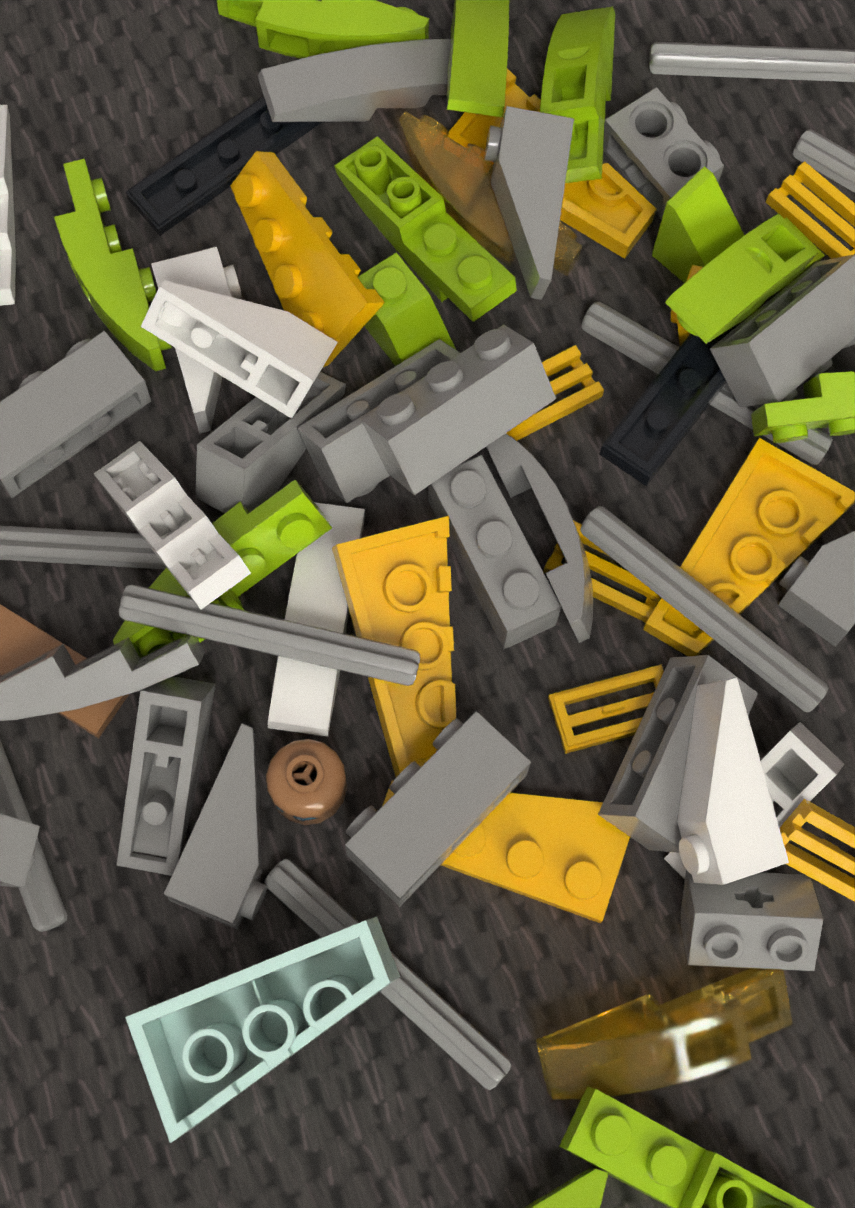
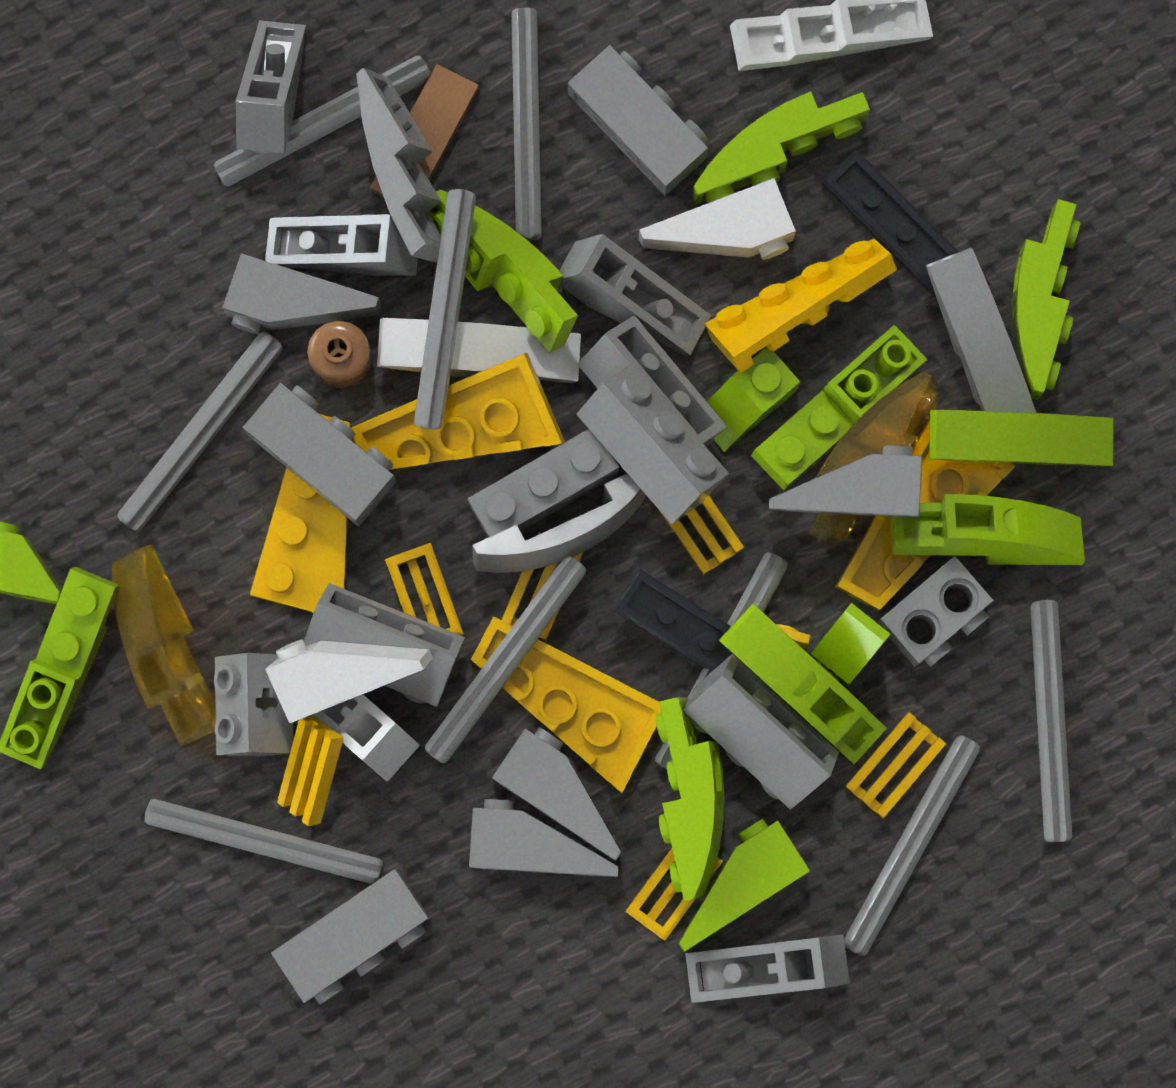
camera: 90 degrees right, 10 degrees up
(172, 524) = (540, 221): white slope -> none
(241, 1027) = (148, 325): light aqua wedge -> none
(242, 341) = (695, 271): white slope -> none

